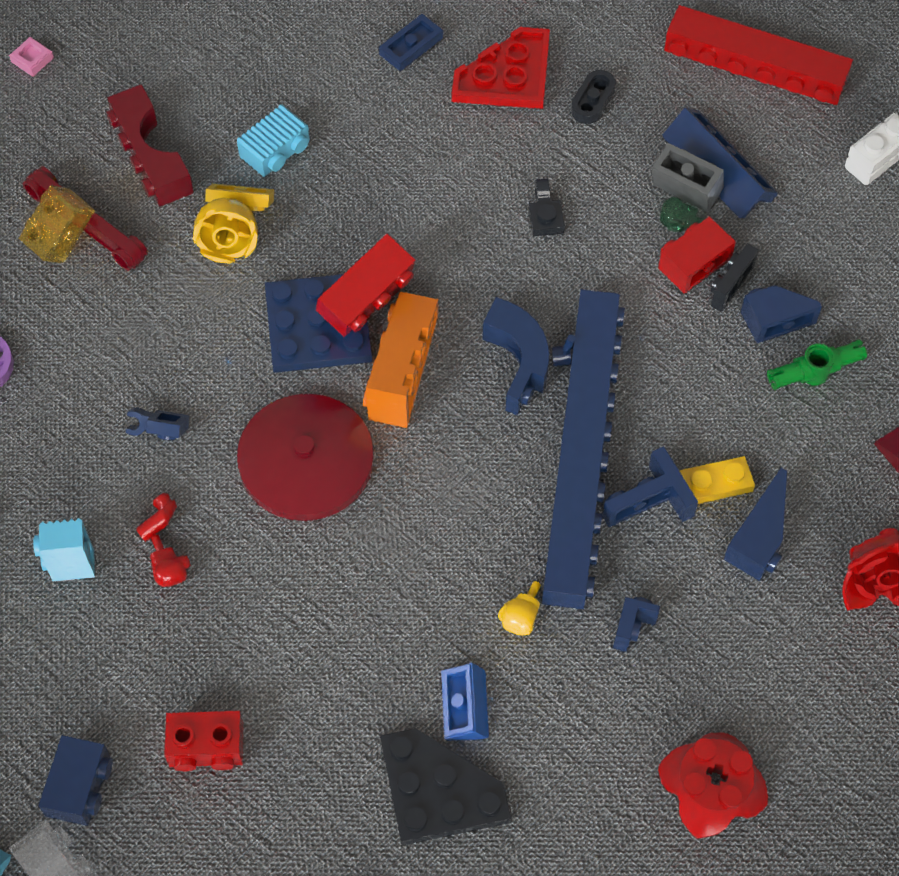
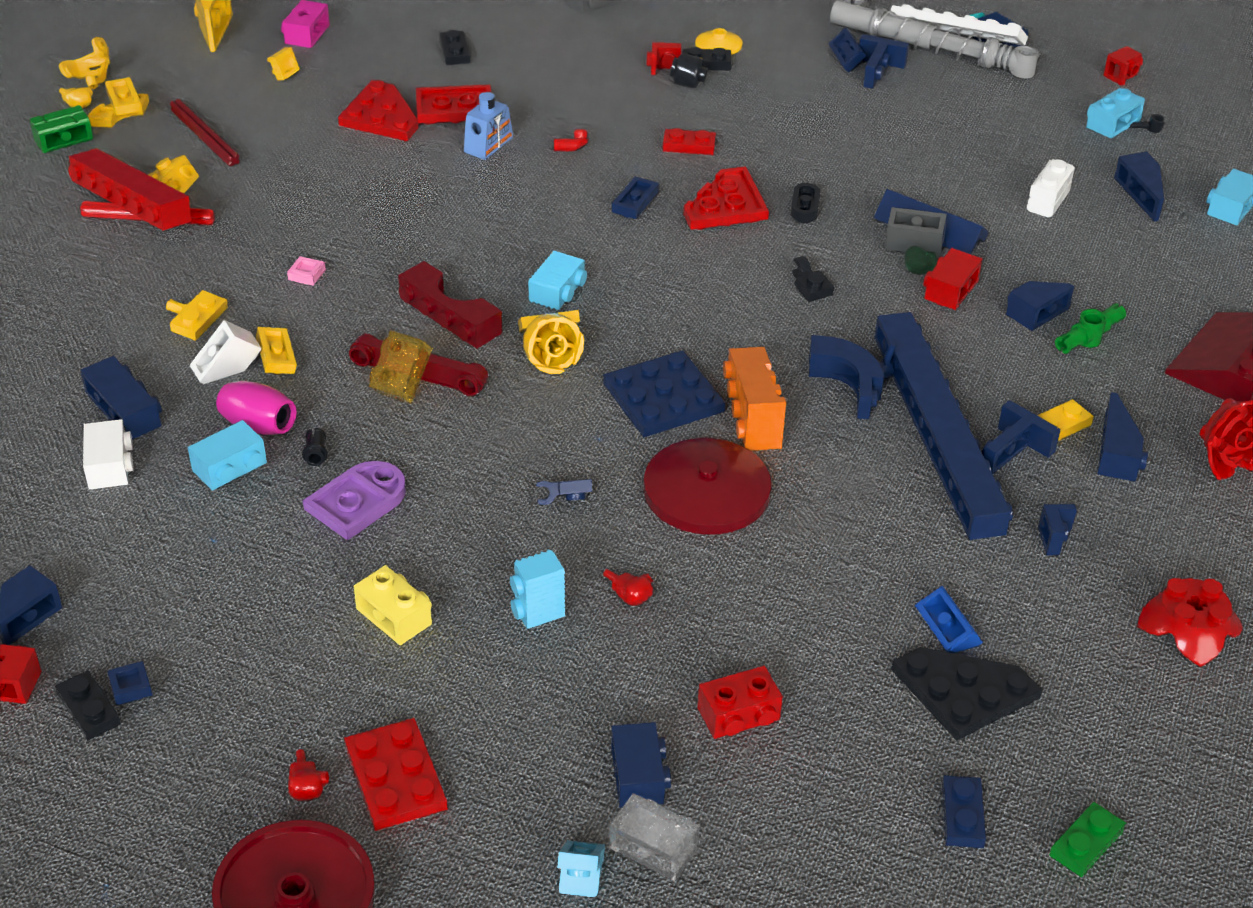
camera: 20 degrees left, 20 degrees down
(159, 520) = (604, 558): red arm -> none
(366, 286) = (703, 345): red wedge -> none
(520, 613) = (958, 546): yellow piece -> none
(738, 269) = (988, 288): black plate -> none
(758, 55) = (919, 152): red brick -> none

